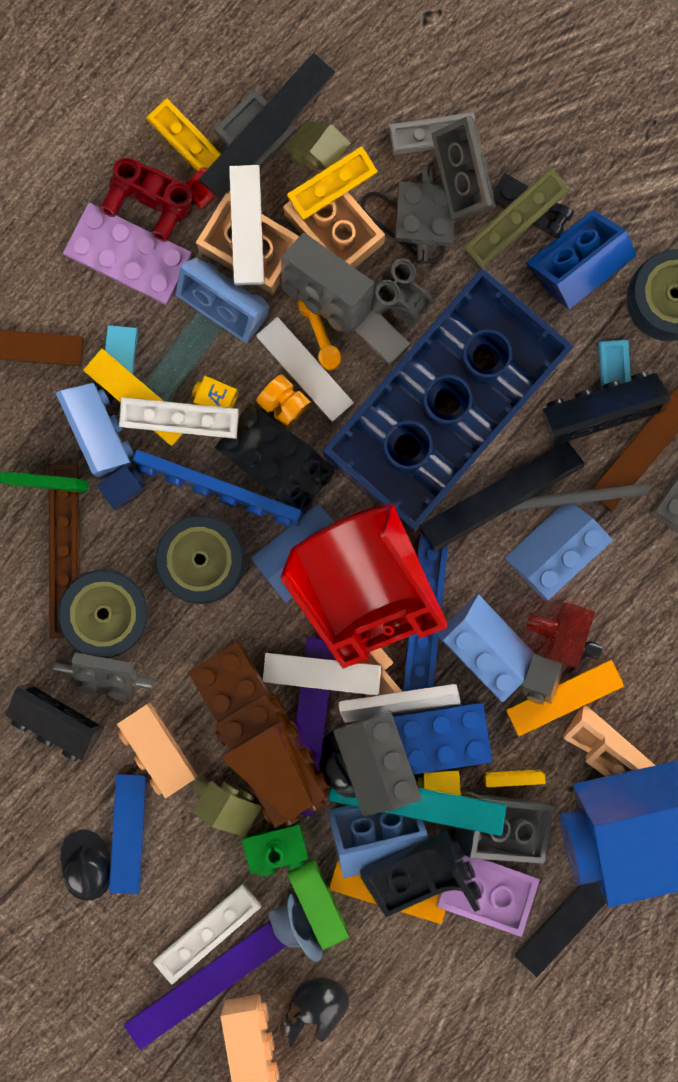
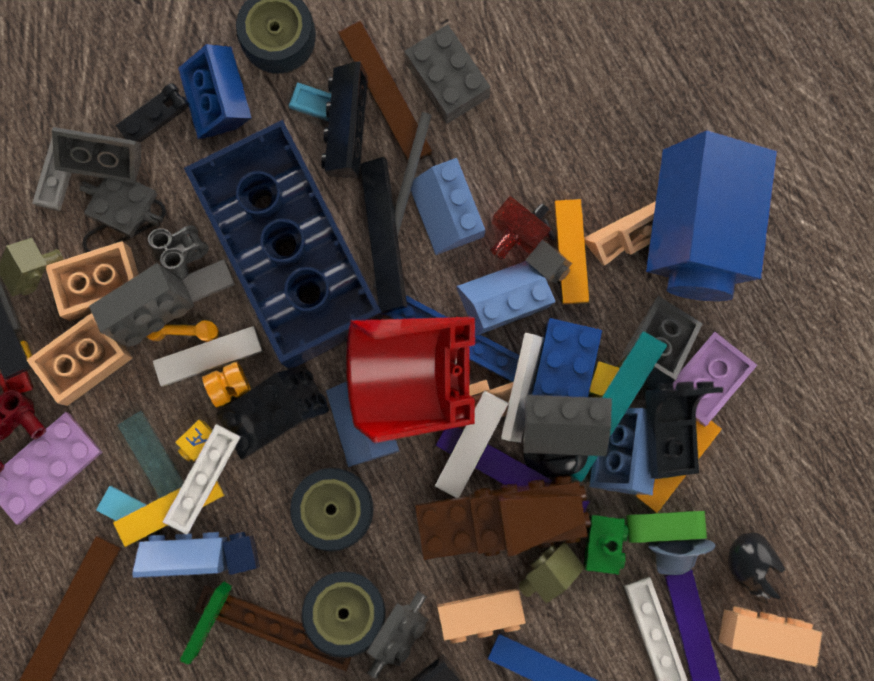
camera: 70 degrees left, 5 degrees down
(220, 300) = (116, 402): medium blue slope -> none
(228, 493) = (269, 479): blue plate -> none
(246, 225) = (61, 352): white tile -> none
(332, 183) = (58, 266): yellow plate -> none
(514, 778) = (622, 319): yellow tile -> none
(517, 218) = (157, 129): olive tile -> none
(561, 928) = (761, 329): black tile -> none

